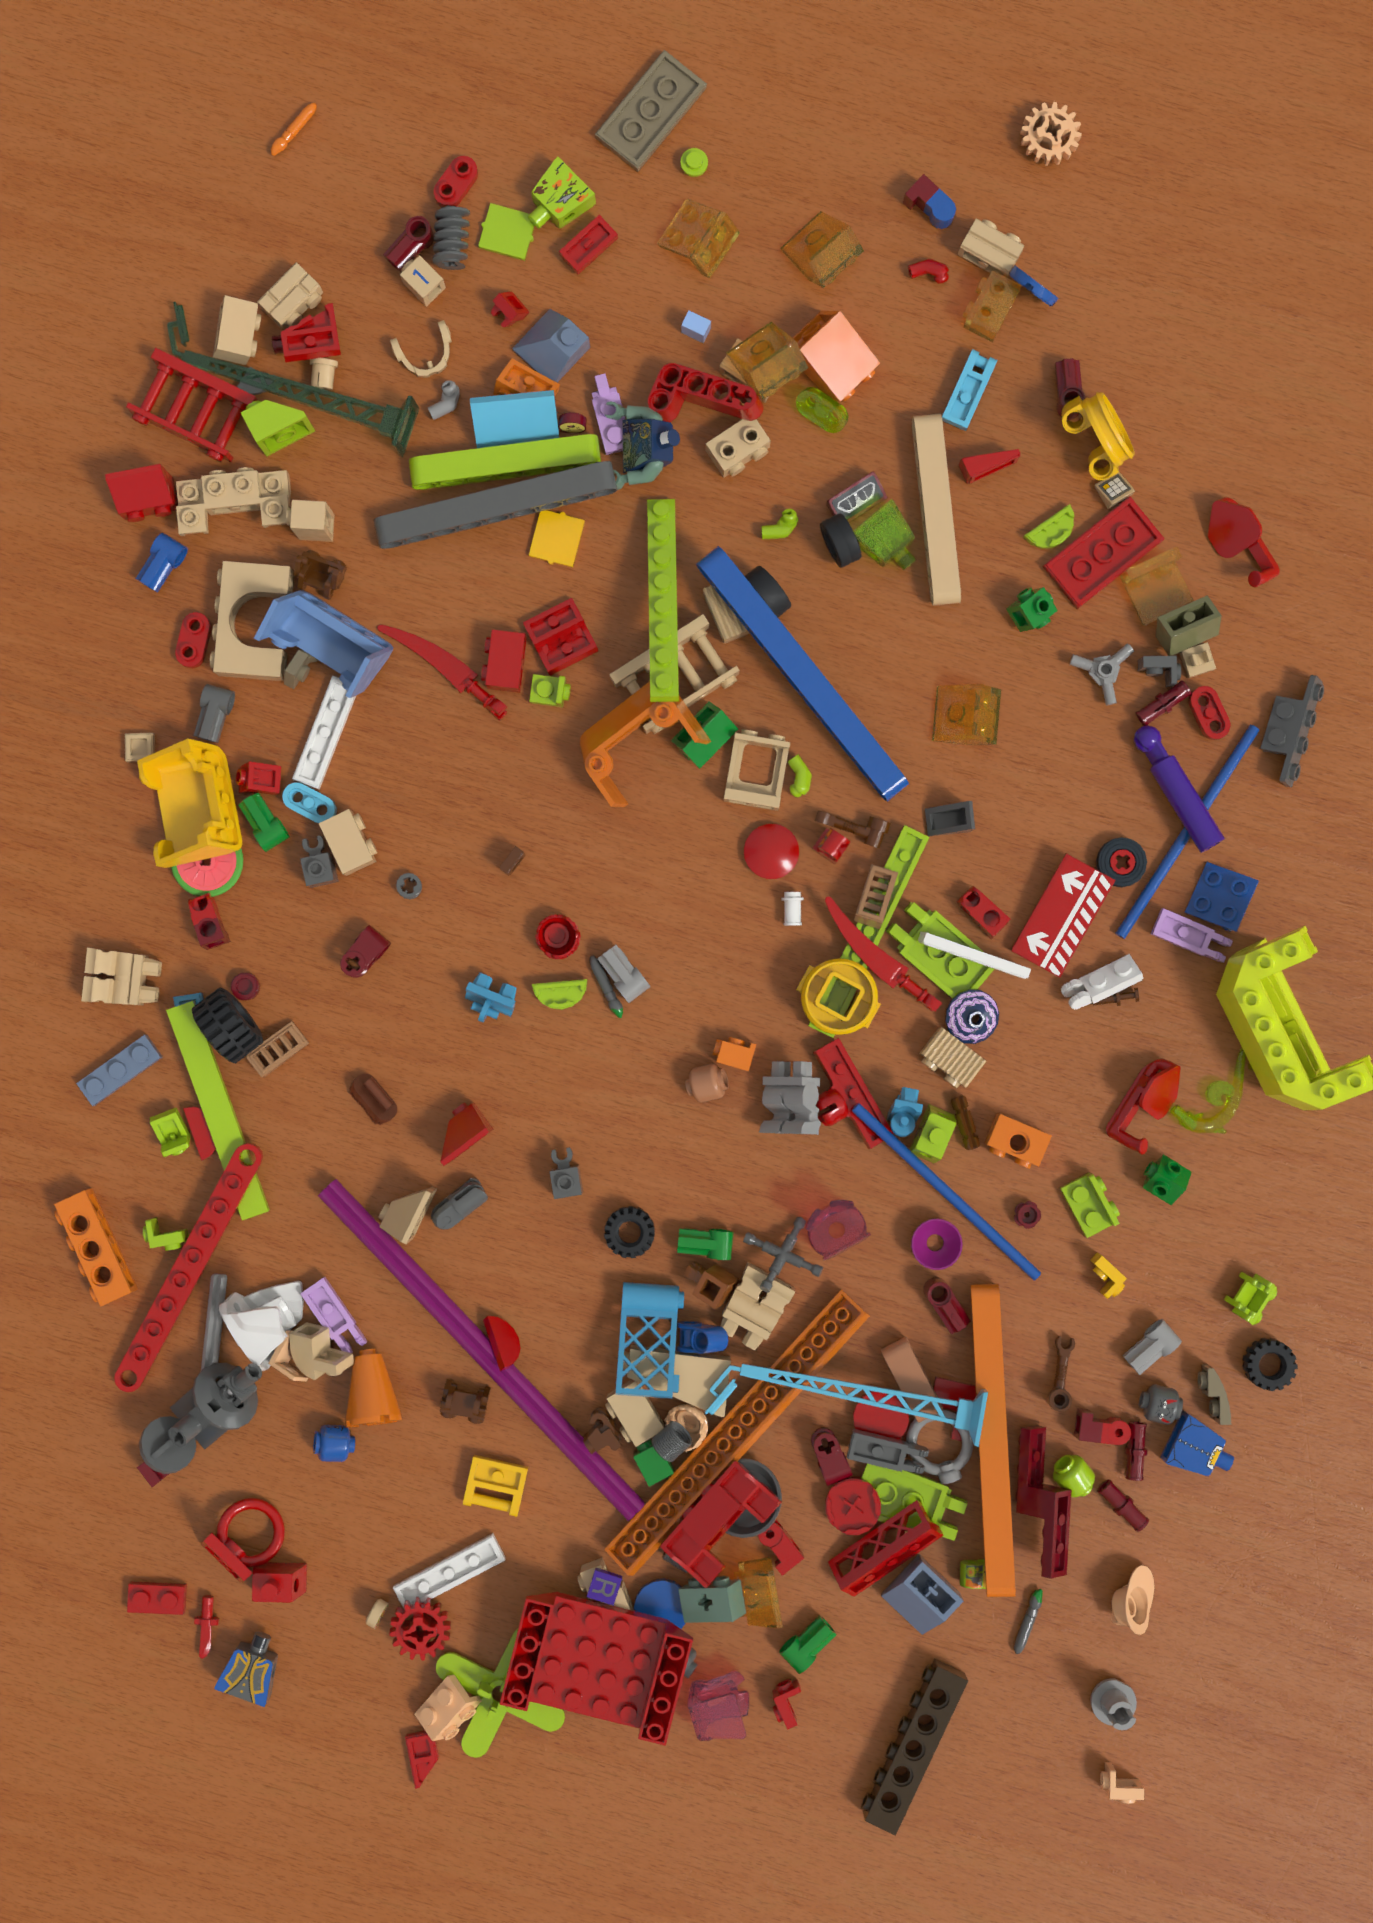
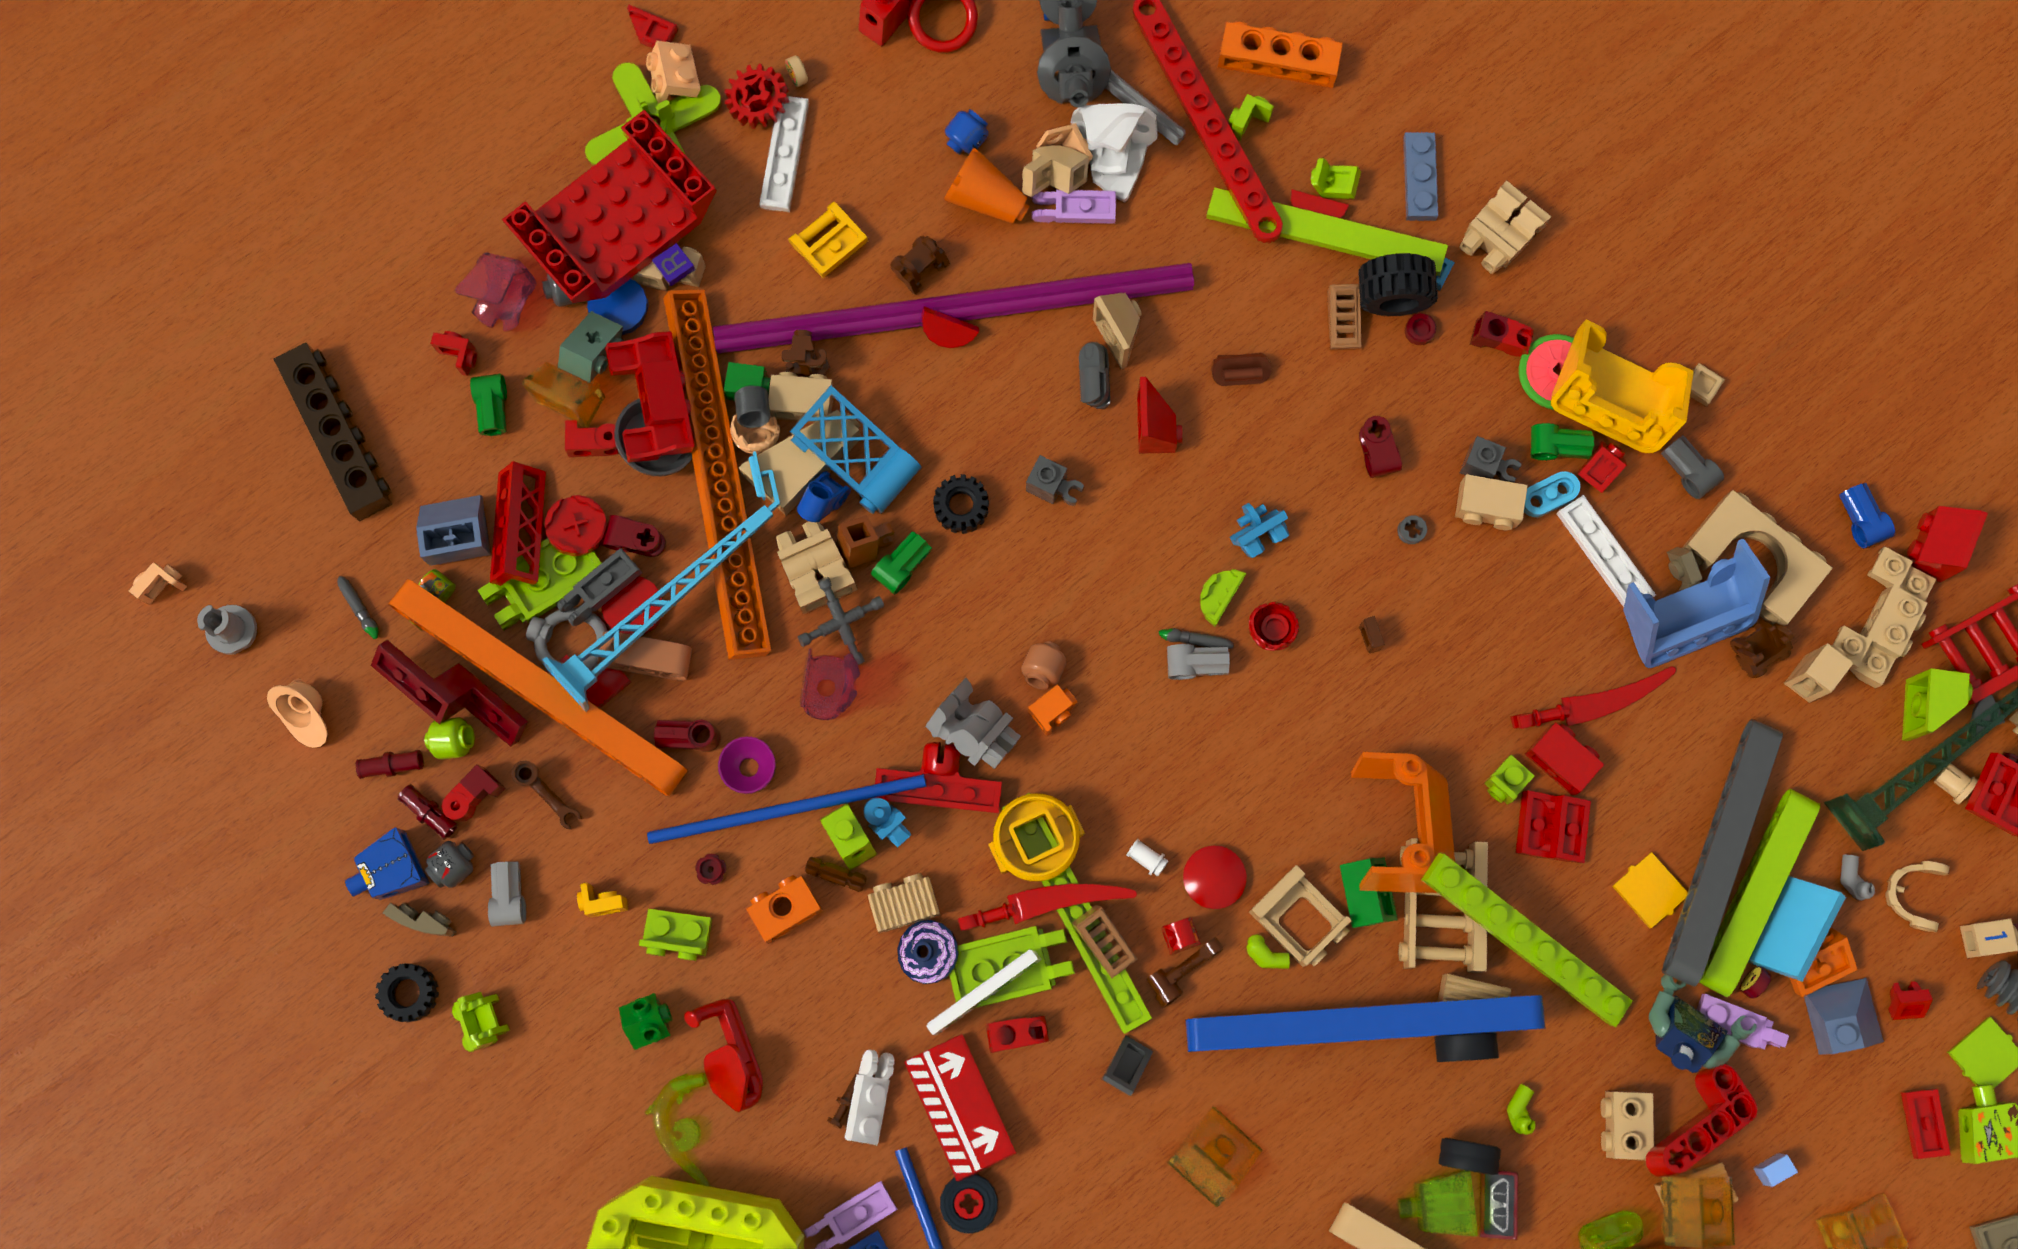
camera: 130 degrees right, 10 degrees down
(197, 640) = (1770, 498): red plate -> none

